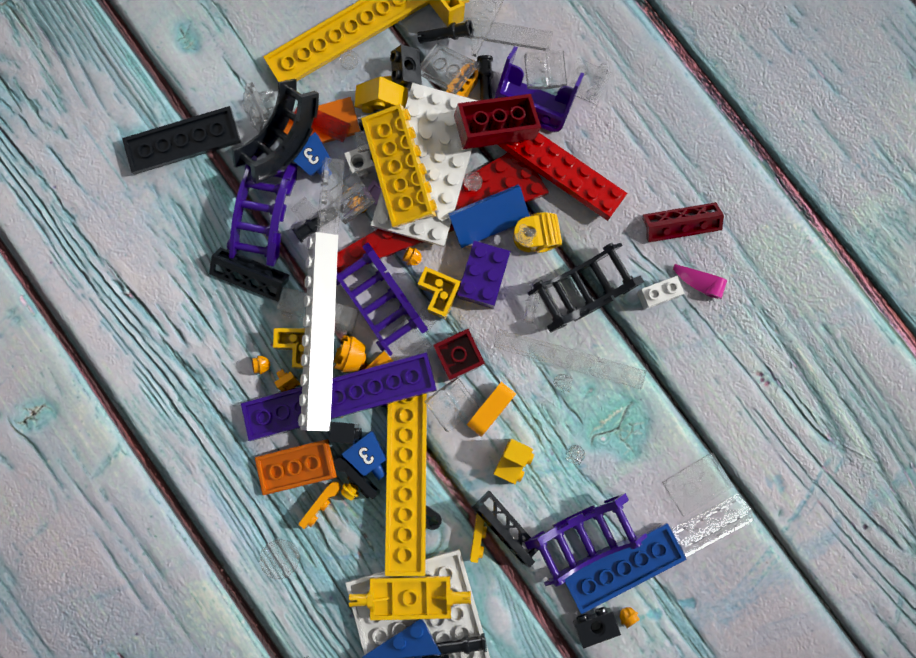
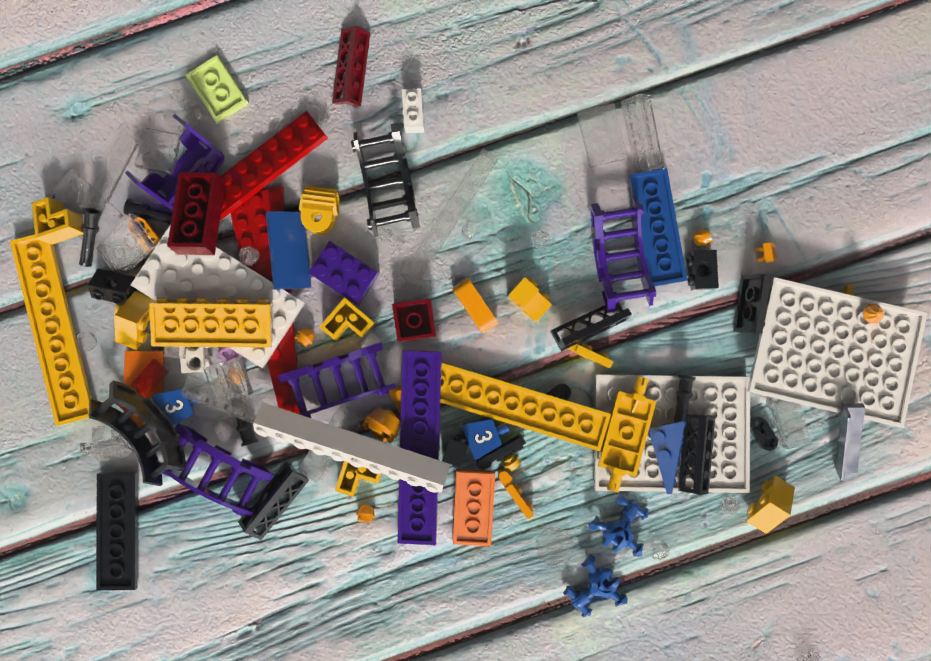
camera: 75 degrees left, 5 degrees up
(254, 615) = (600, 584): none -> blue piece
(286, 381) = (389, 493): light orange tile -> none
(311, 619) = (619, 531): none -> blue piece
(452, 404) = (459, 341): clear slope -> none
(525, 230) = (324, 221): clear plate -> none
(620, 105) = (217, 89): none -> yellowish green tile
(704, 282) = (414, 68): dark pink piece -> none

